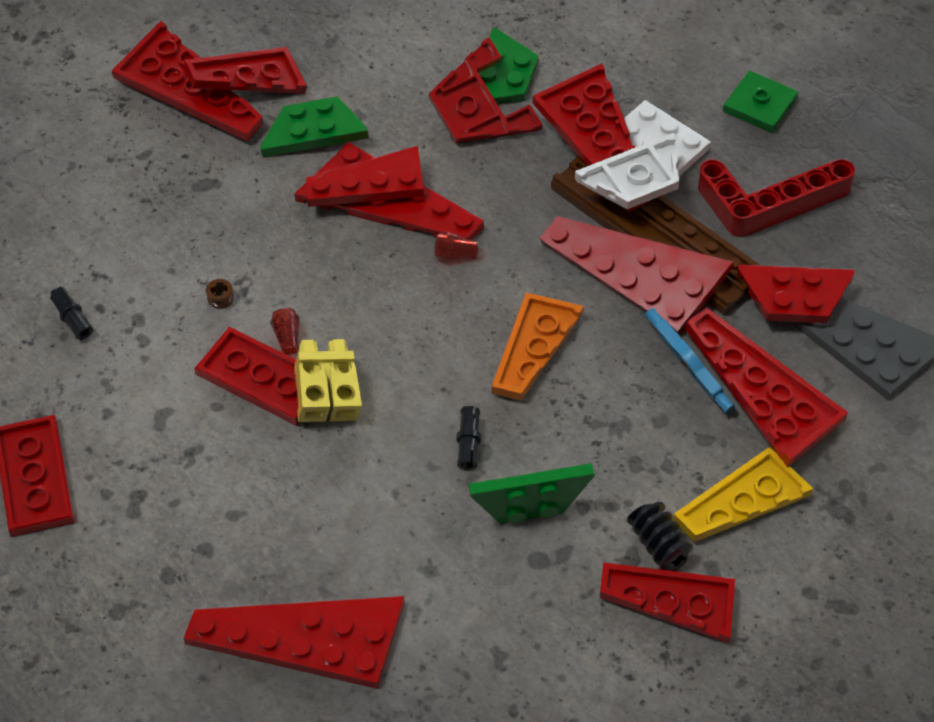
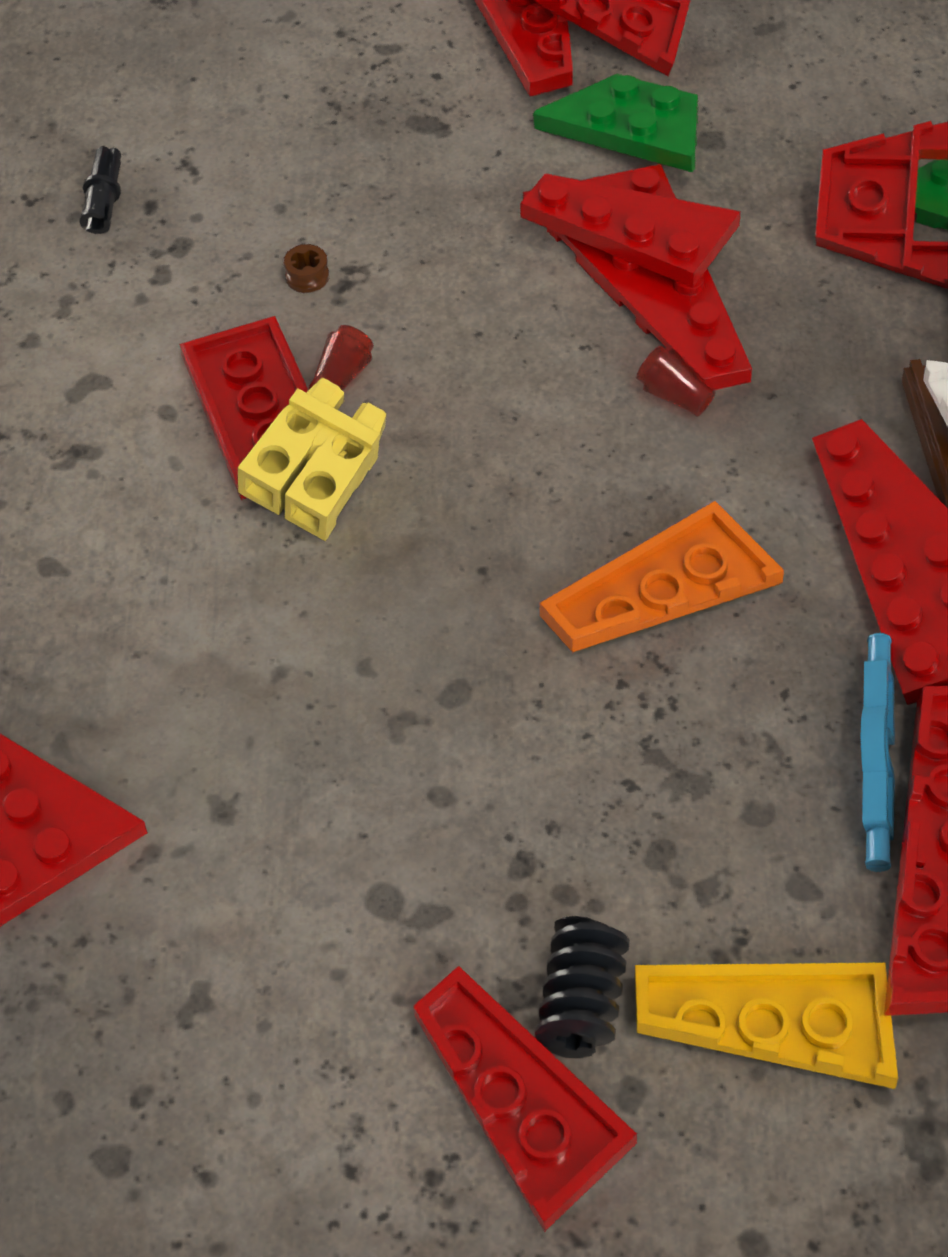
camera: 40 degrees right, 0 degrees up
(468, 438) = (443, 657): black pin -> none
(531, 494) = (431, 788): green wing -> none

